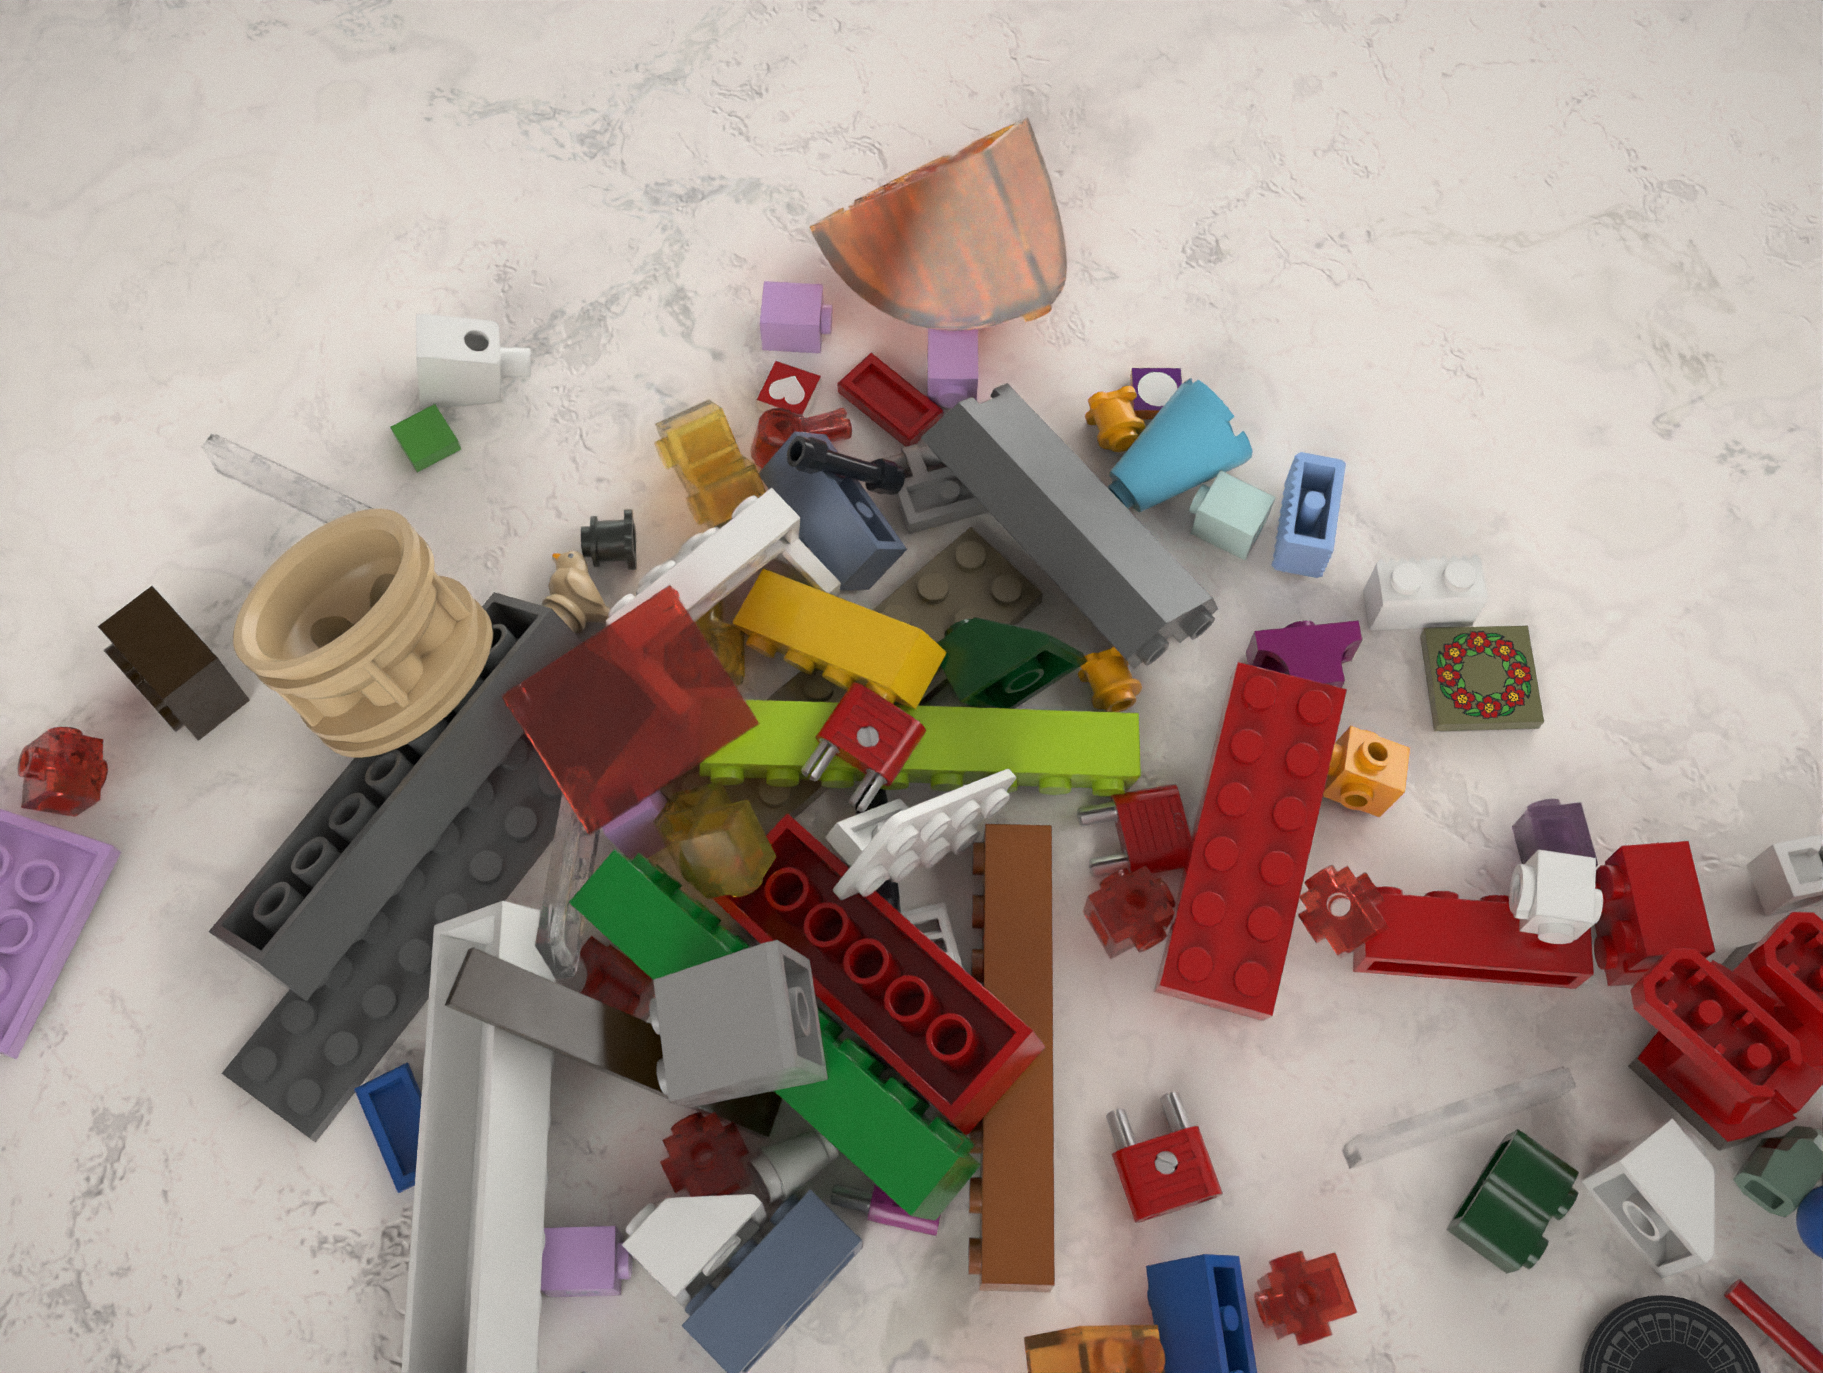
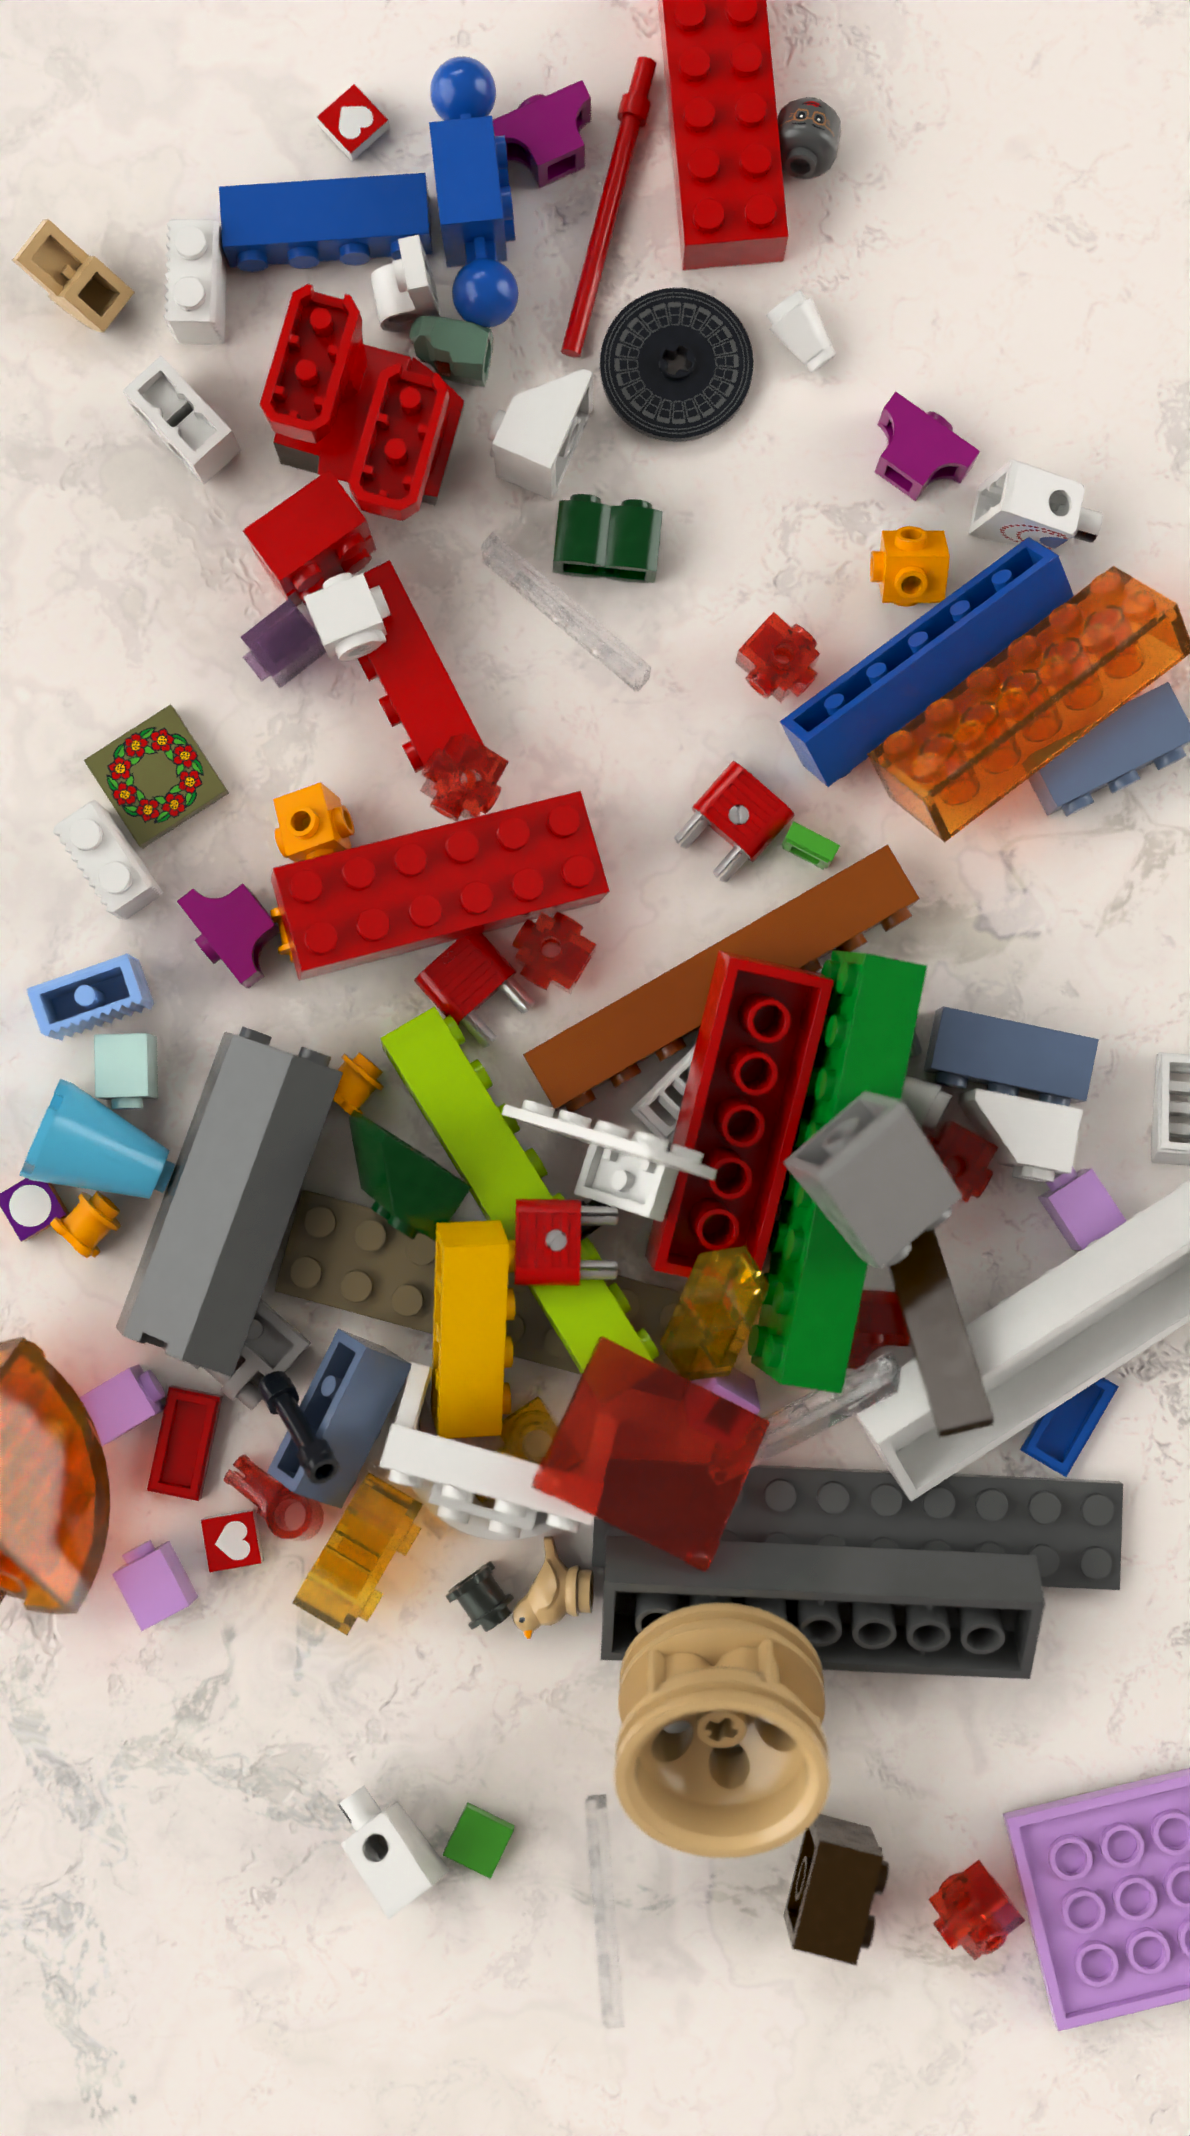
camera: 120 degrees left, 20 degrees up
(1096, 1214) = (810, 846): none -> bright green tile

